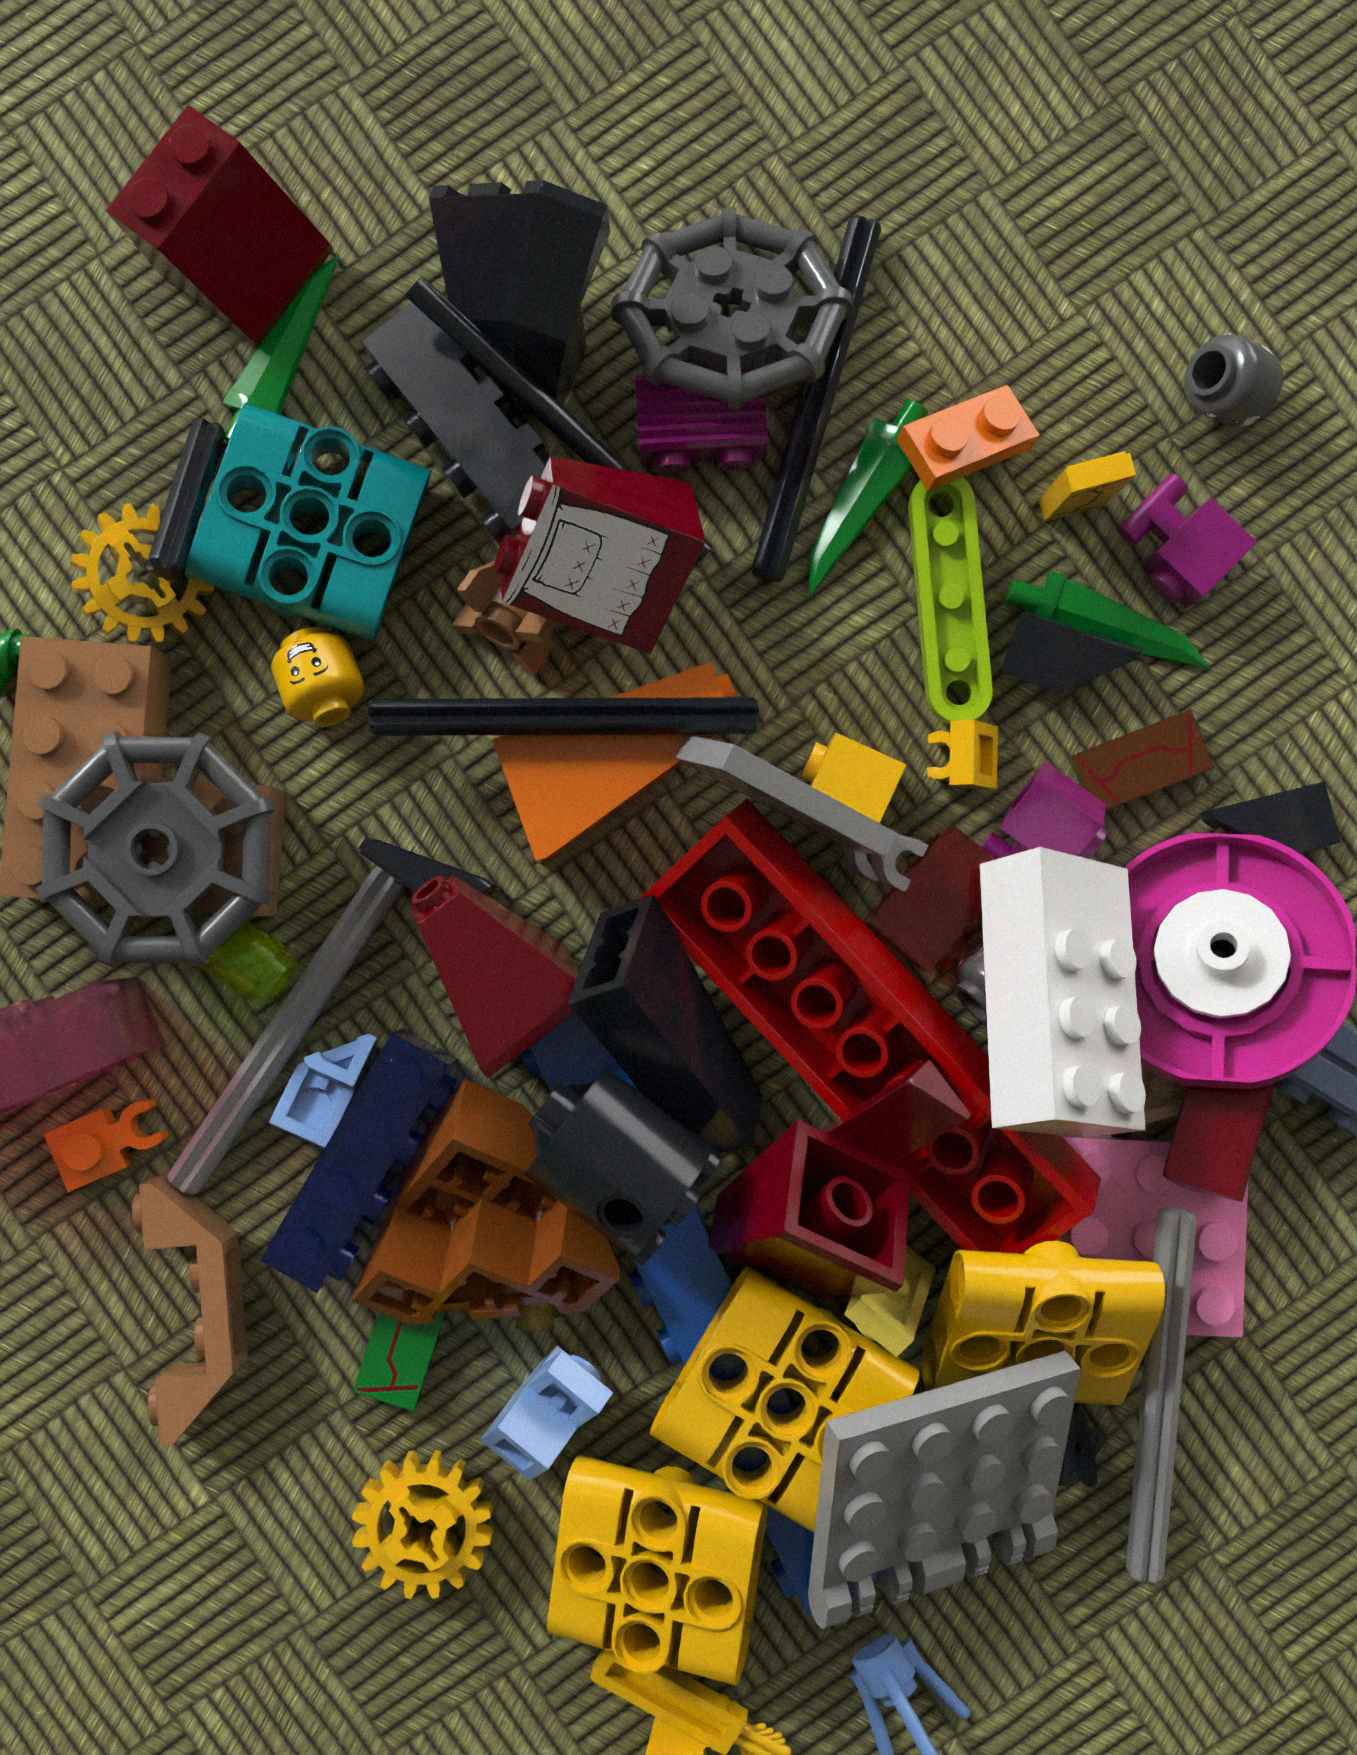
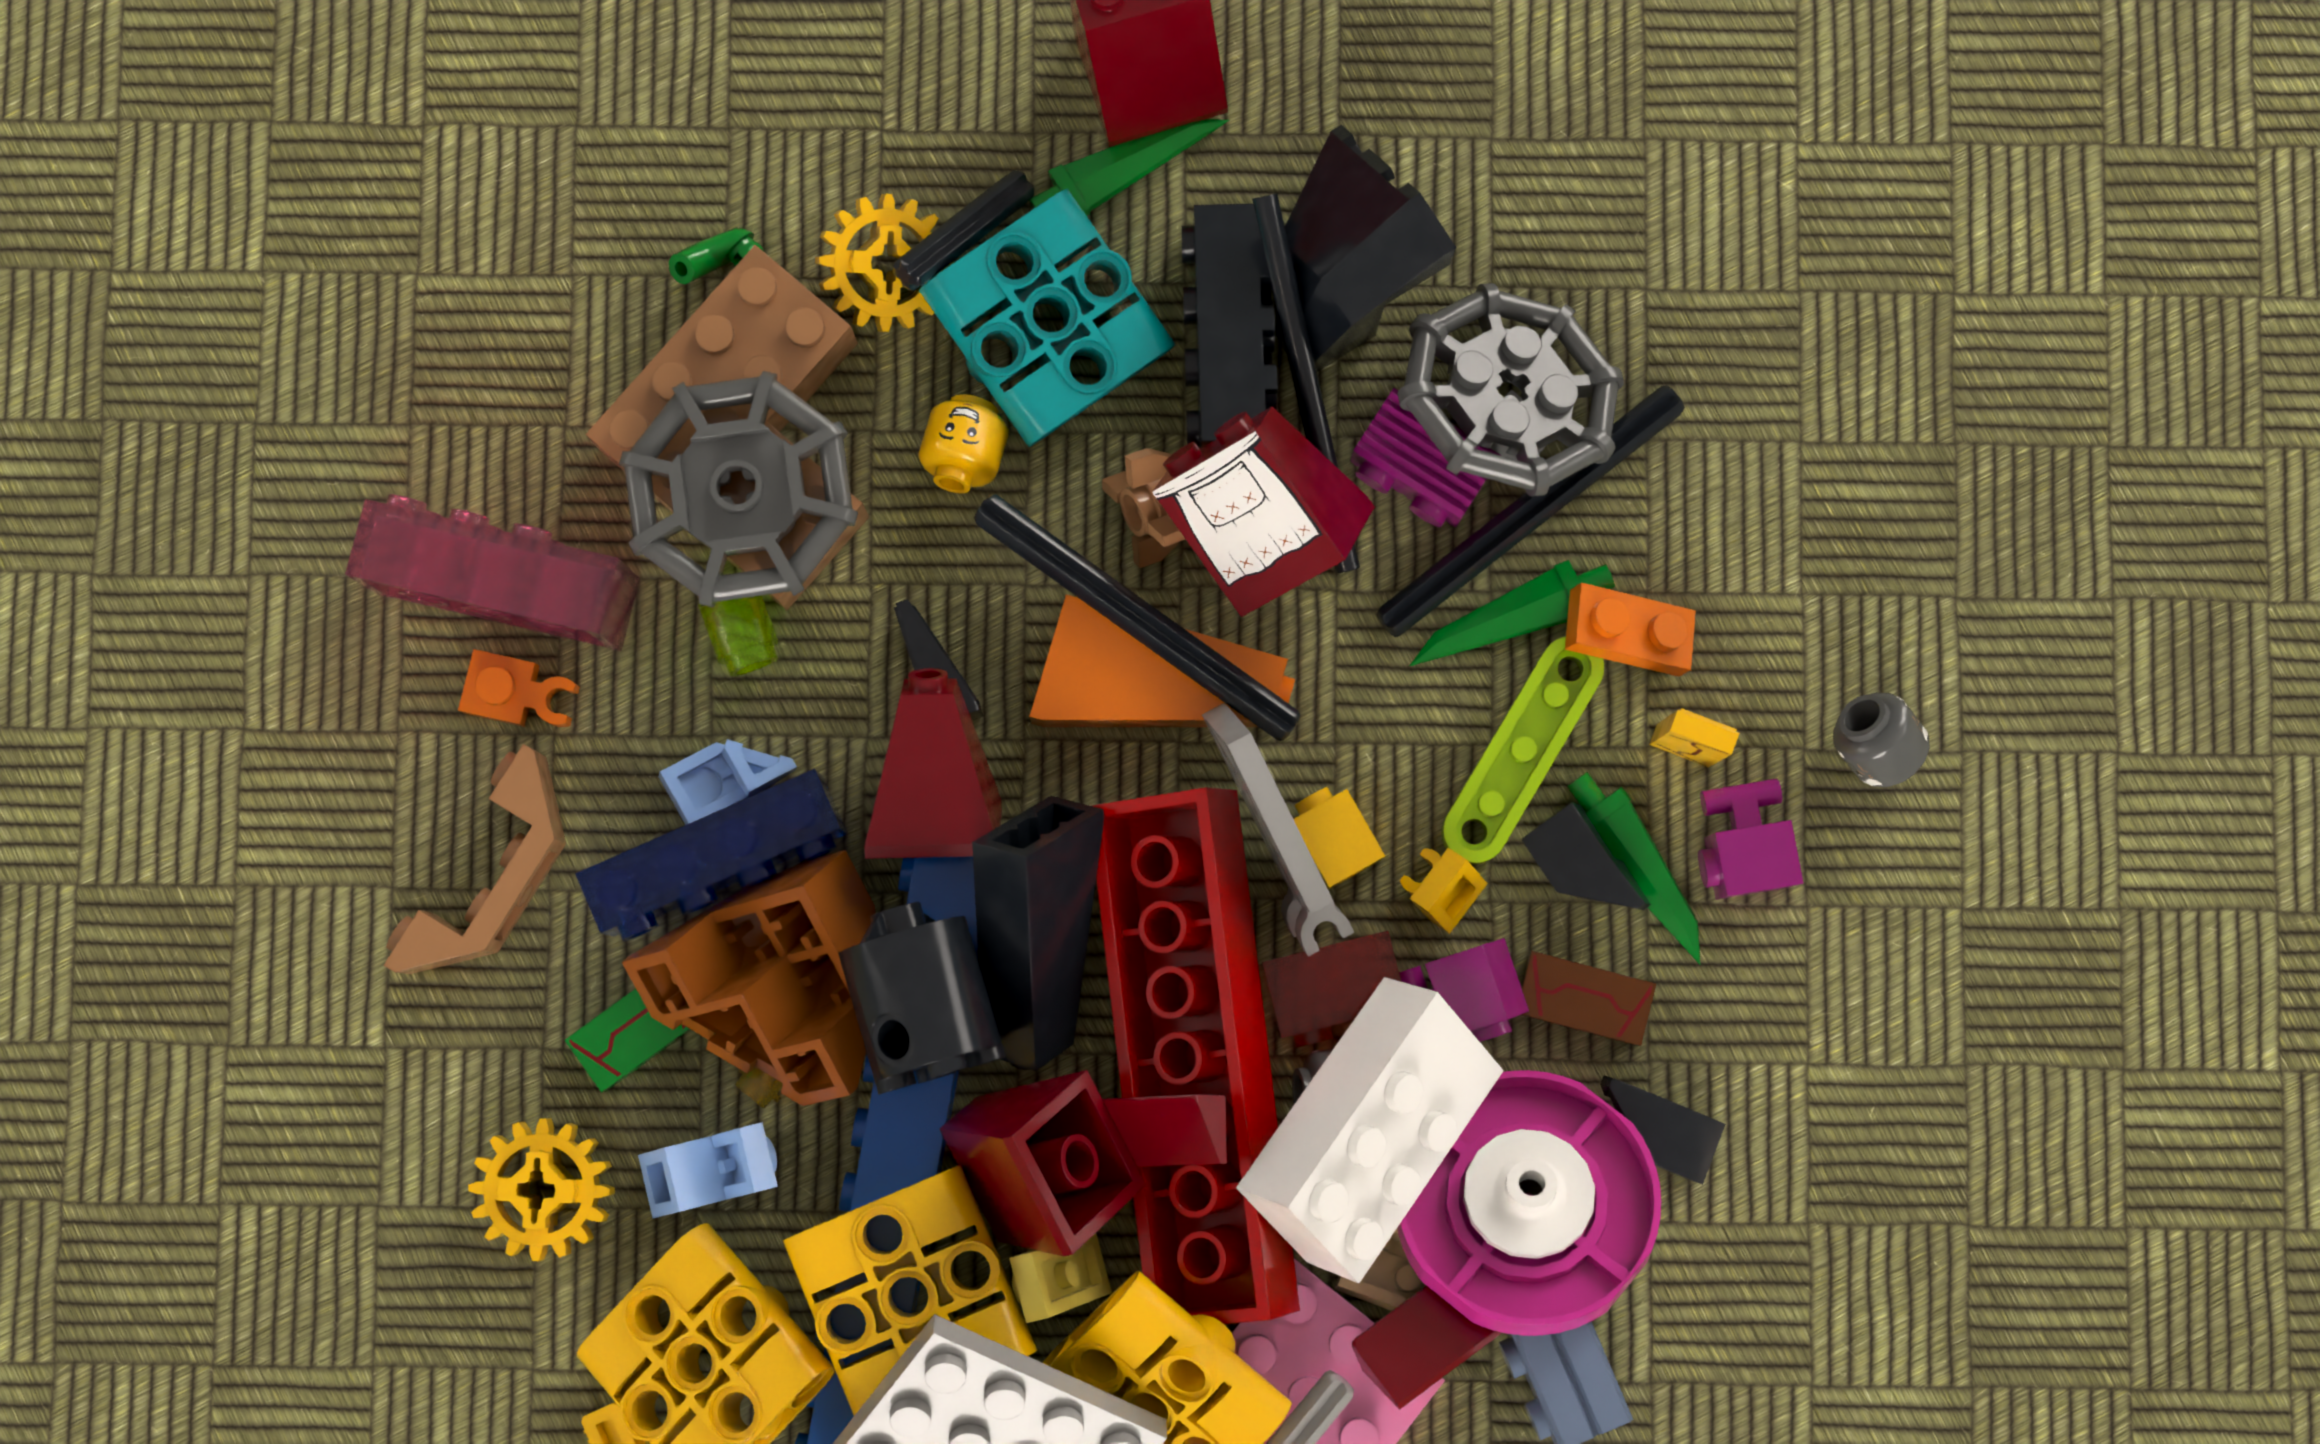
camera: 40 degrees right, 5 degrees down
(284, 1032) = (726, 708): light grey axle -> none

